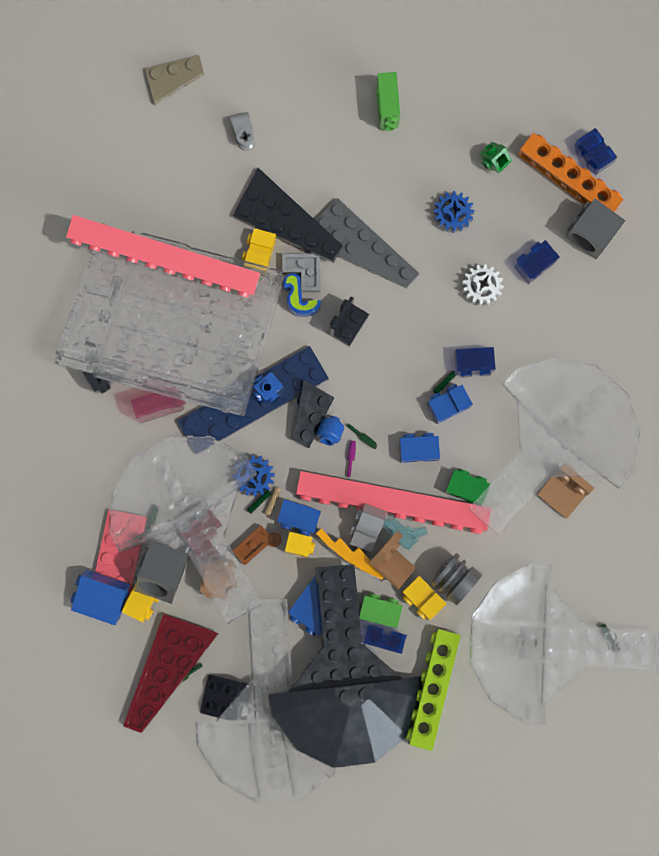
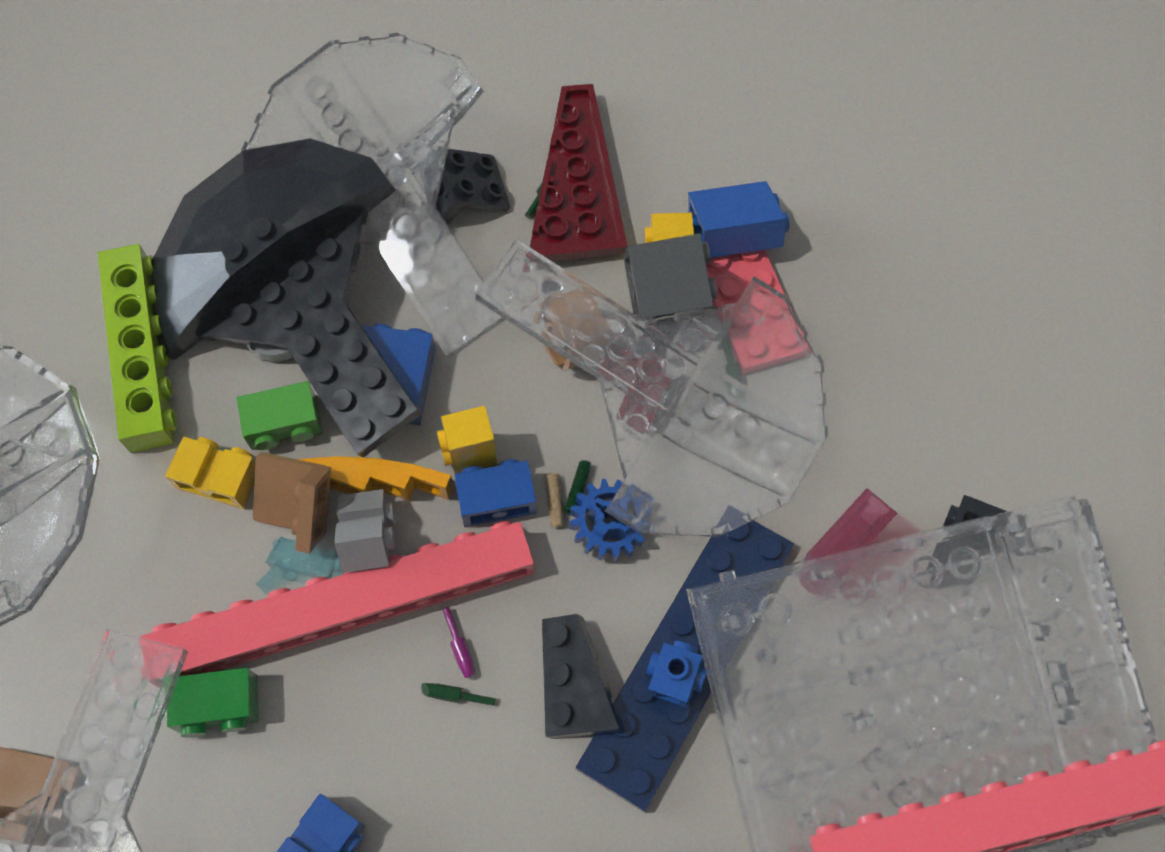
camera: 155 degrees right, 15 degrees down
(256, 543) = (544, 417): dark orange hinge -> none
(330, 430) = (519, 669): blue head -> none
(392, 642) = (249, 371): clear blue brick -> none
(419, 448) = (336, 725): blue brick -> none
(456, 579) = (162, 524): flat silver wheel -> none

